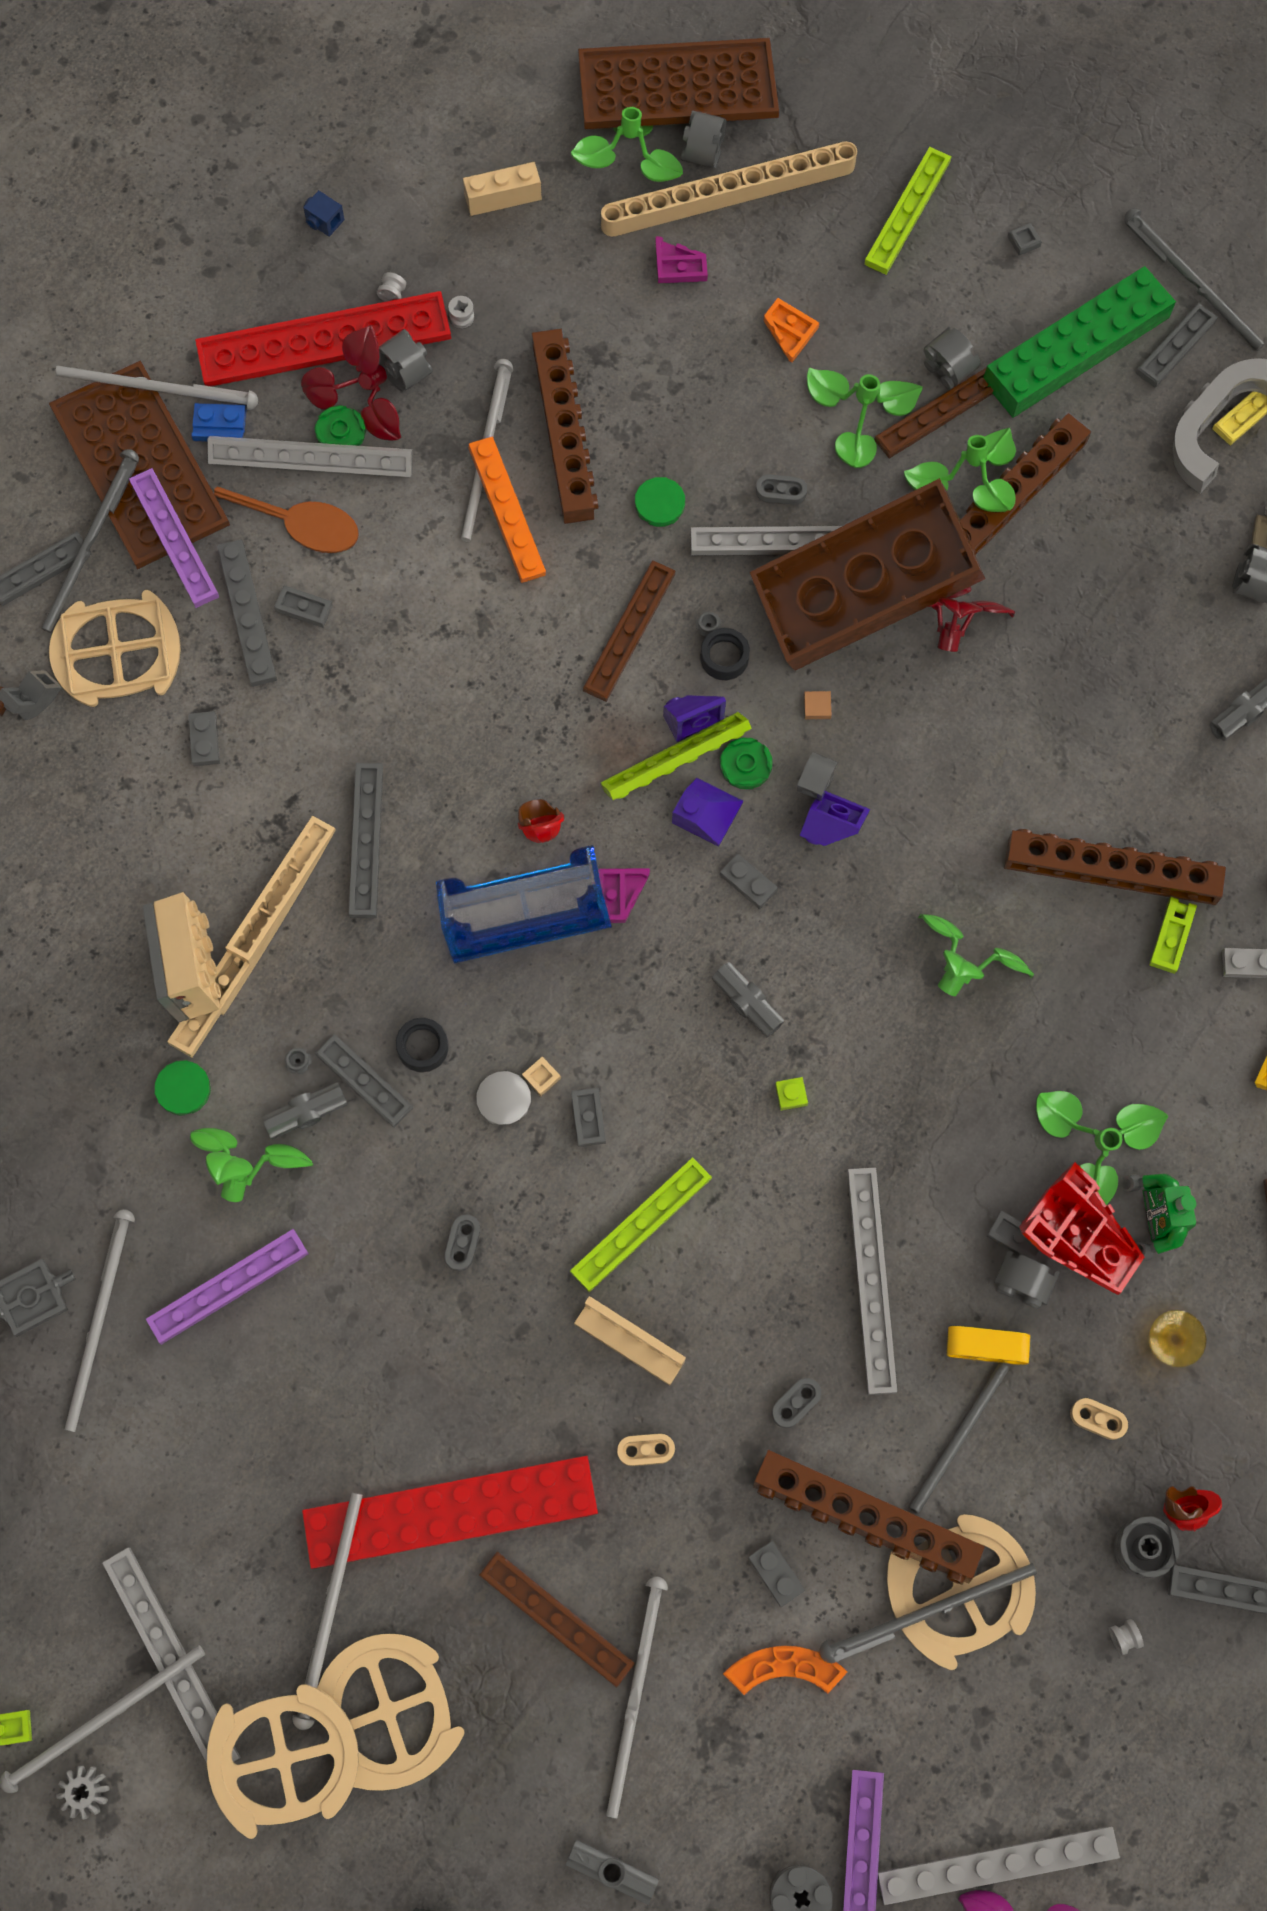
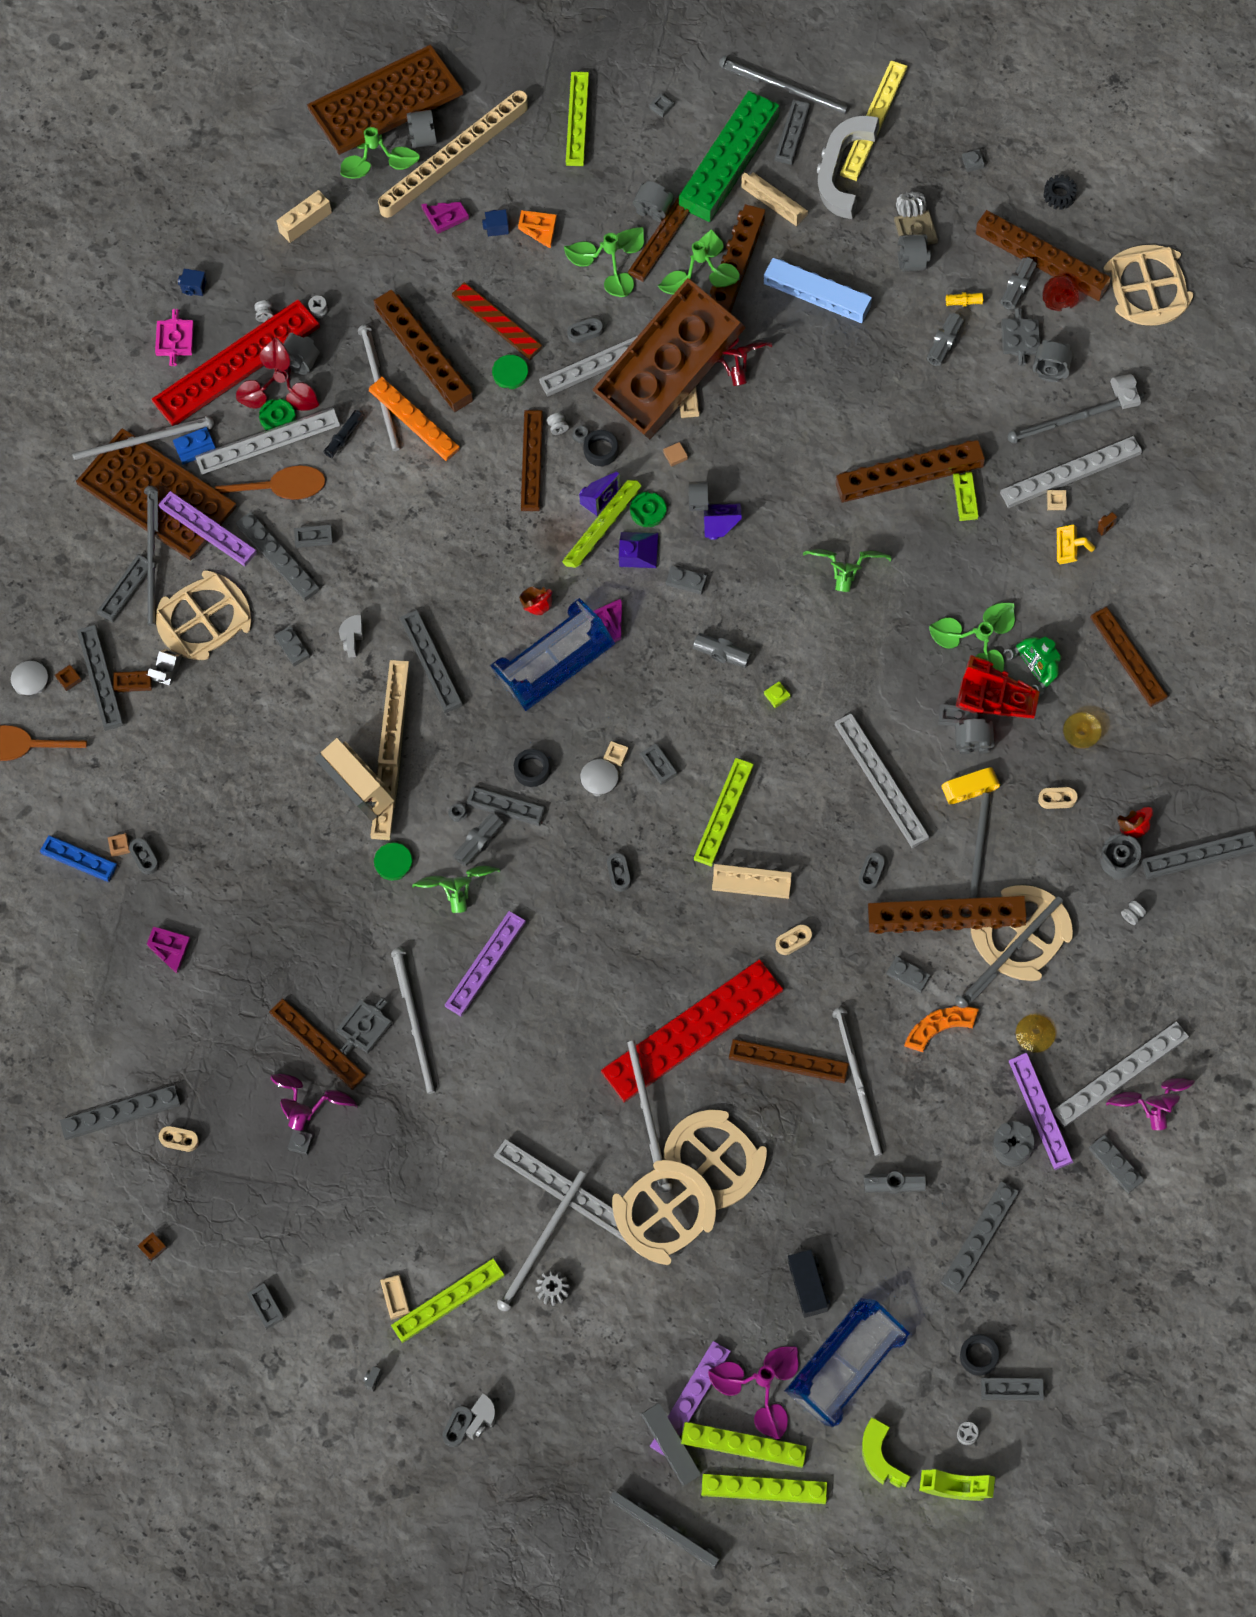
camera: 20 degrees left, 5 degrees down
(265, 274) = (174, 337): none -> dark pink plate
(285, 753) = (351, 631): none -> light grey brick
(400, 494) = (338, 440): none -> black pin
(676, 428) = (497, 321): none -> reddish brown tile
(685, 596) = (557, 423): none -> light grey wheel
(738, 300) = (496, 223): none -> dark blue brick
(868, 648) = (689, 406): none -> tan tile
(893, 1743) = (1035, 1042): none -> clear yellow dish
(1109, 568) = (817, 290): none -> light blue brick
(1110, 422) = (773, 198): none -> tan fence

